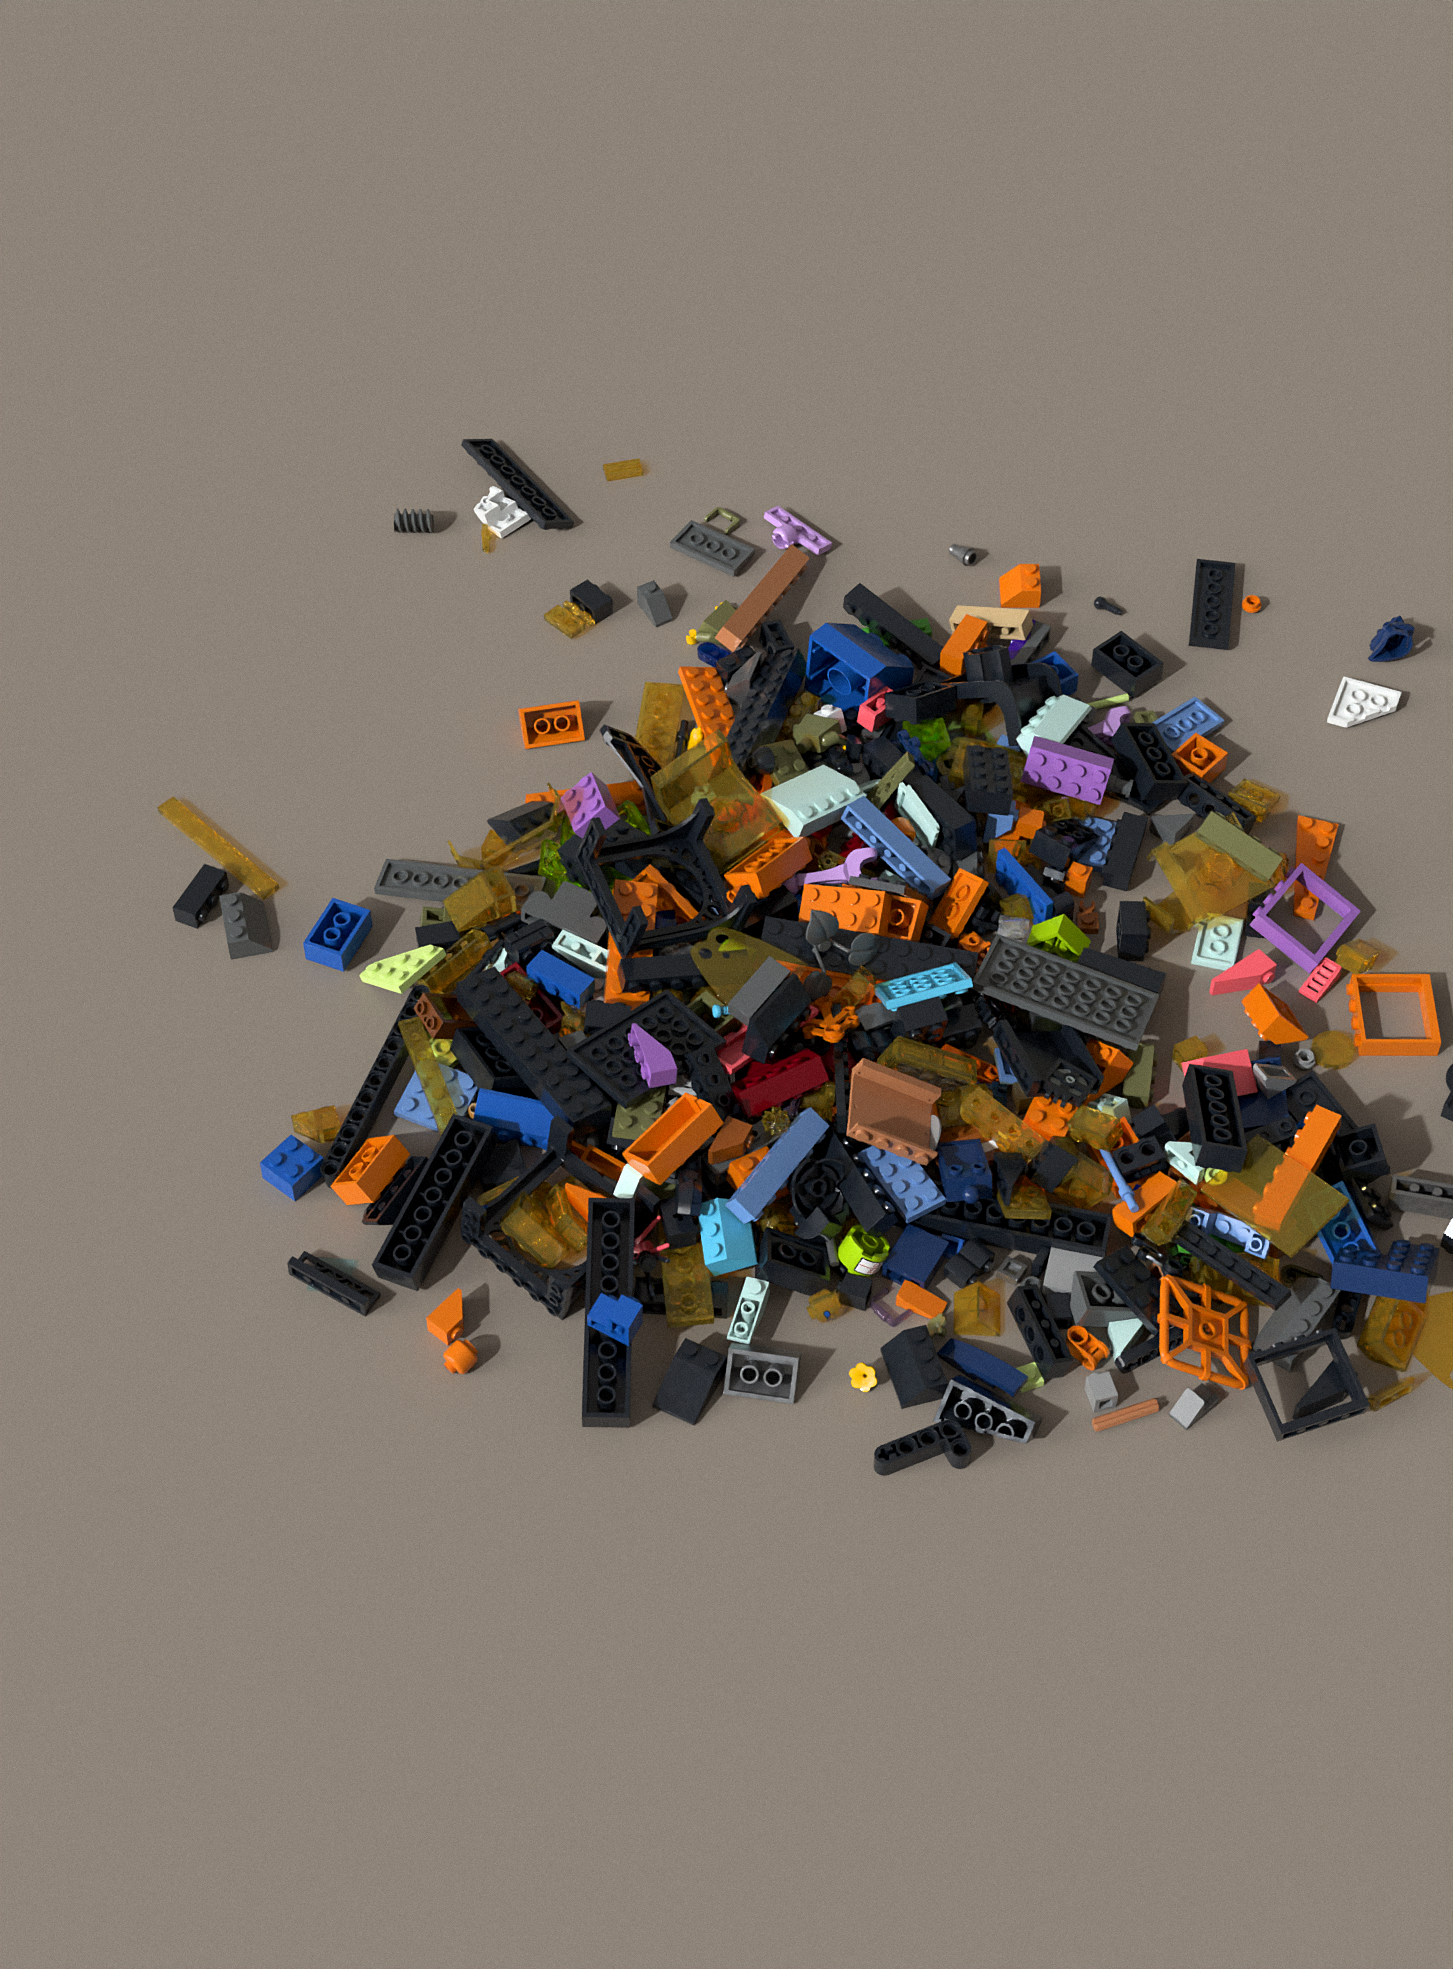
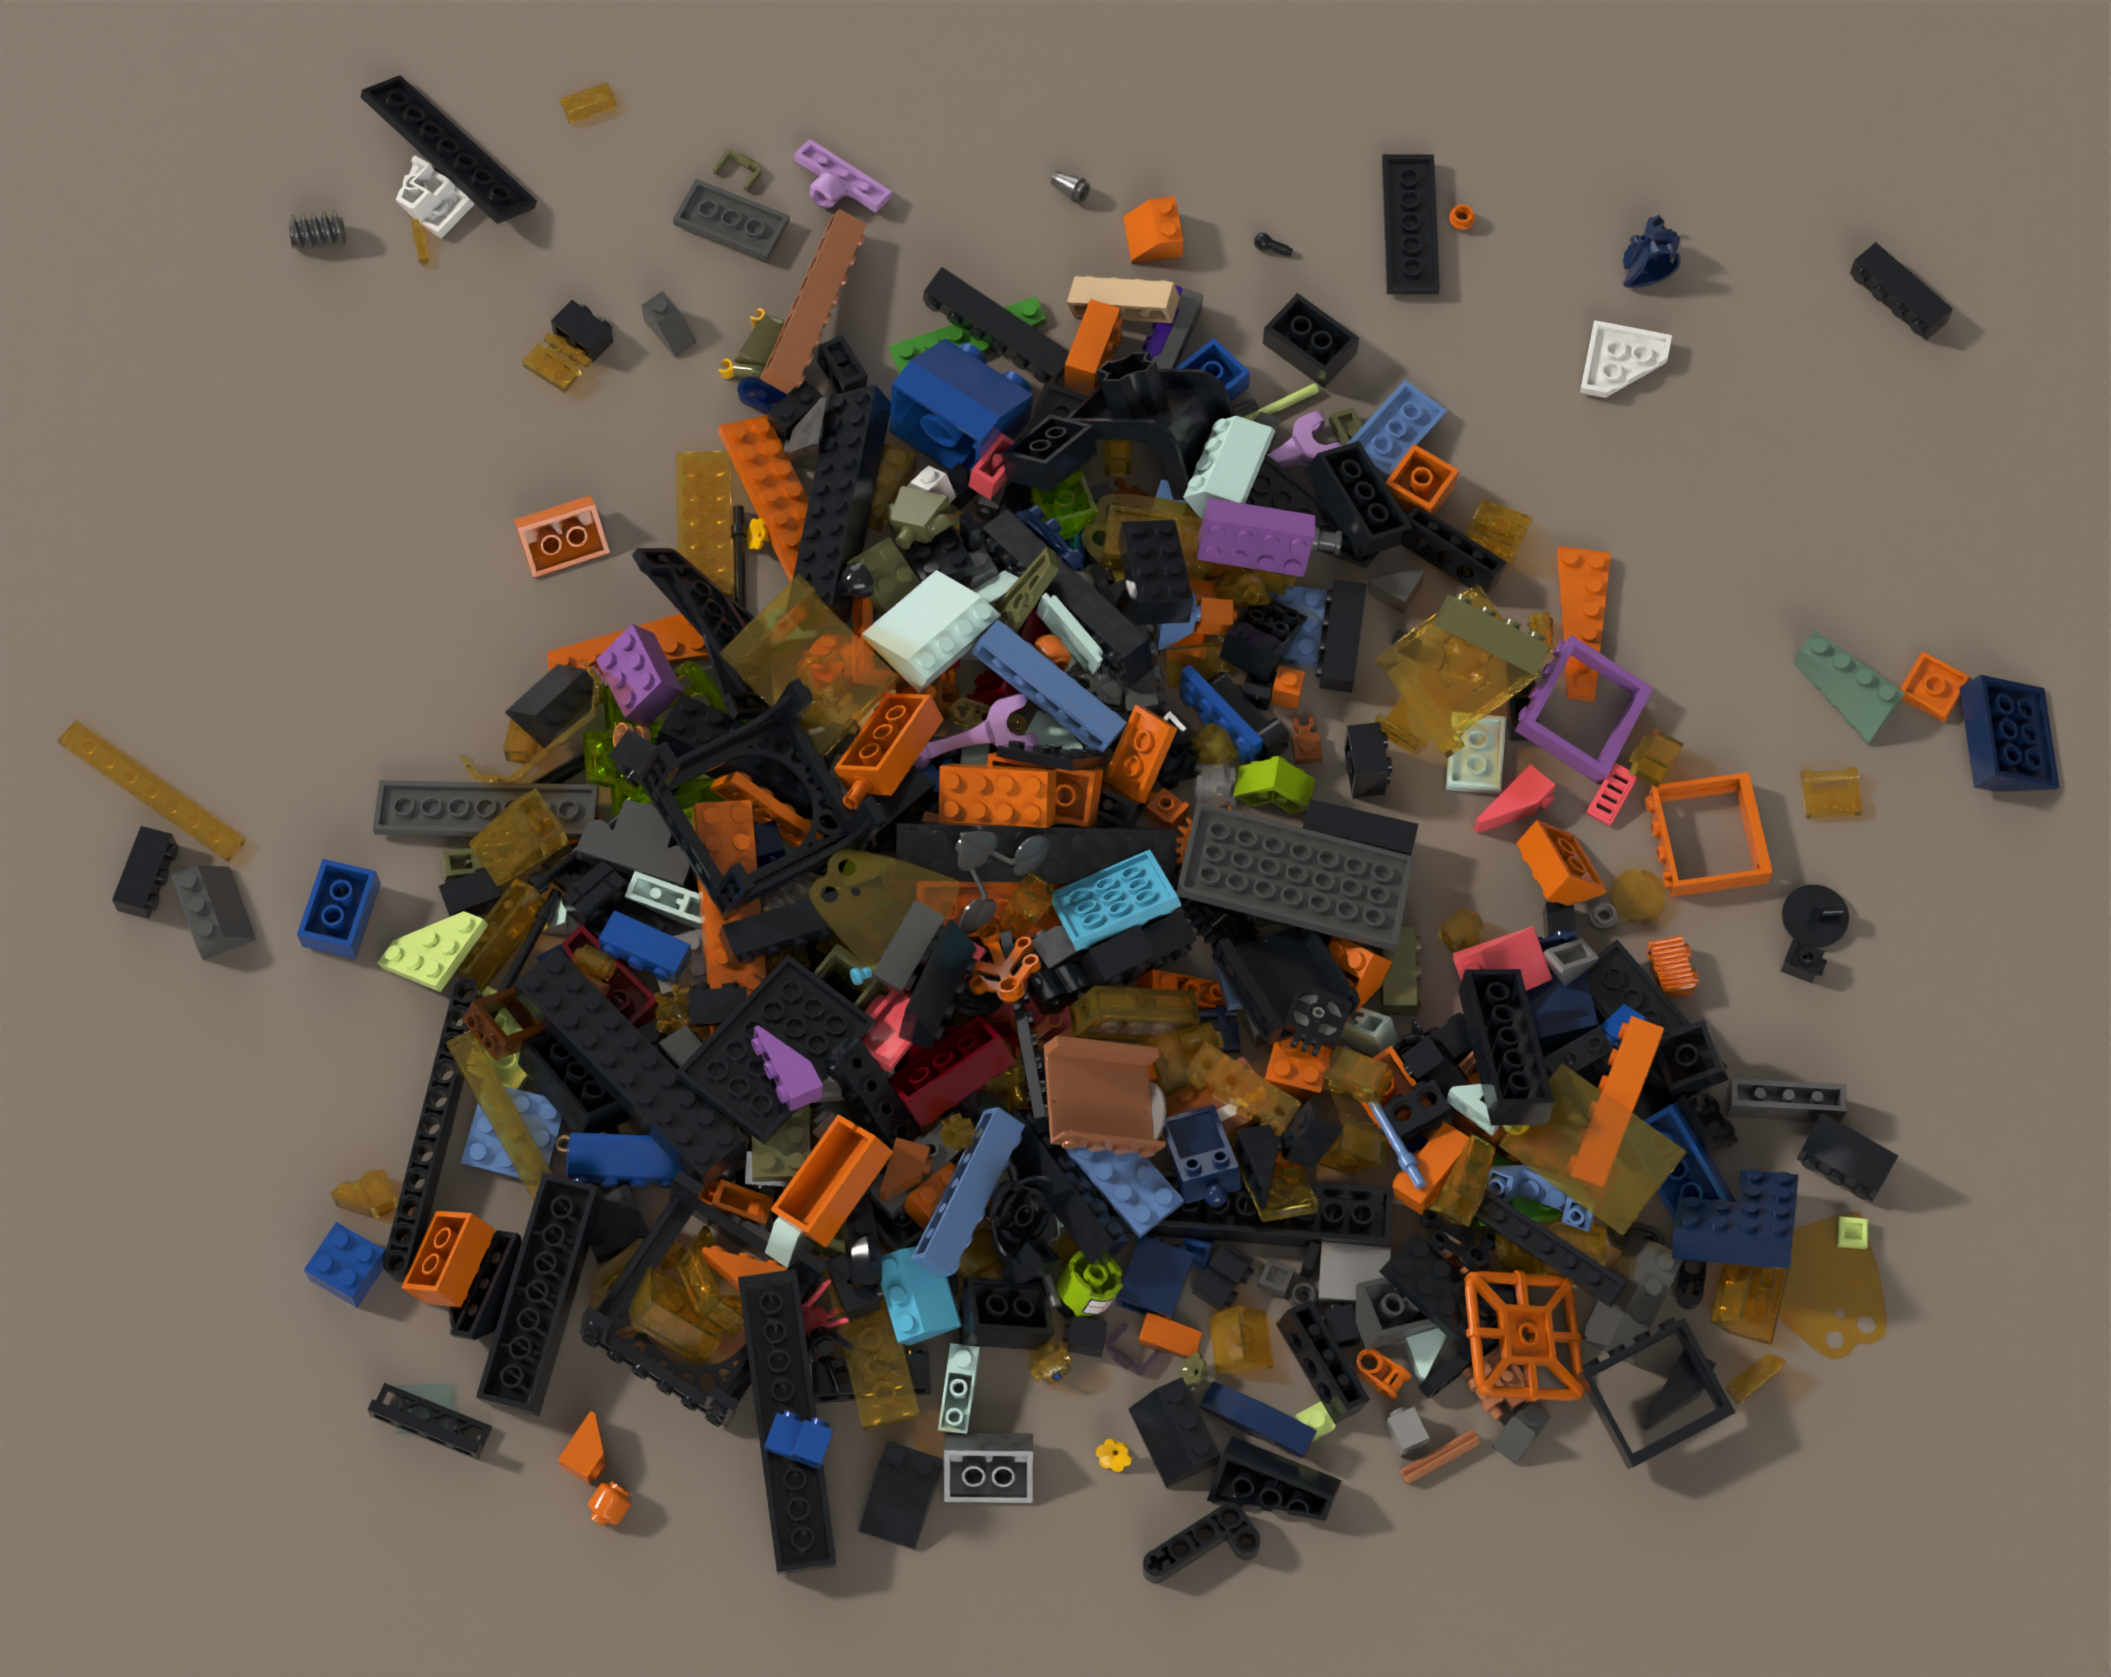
camera: 10 degrees left, 15 degrees up
(1172, 1382) = (1510, 1377): none -> nougat plate
(1353, 1097) = (1671, 967): none -> orange brick

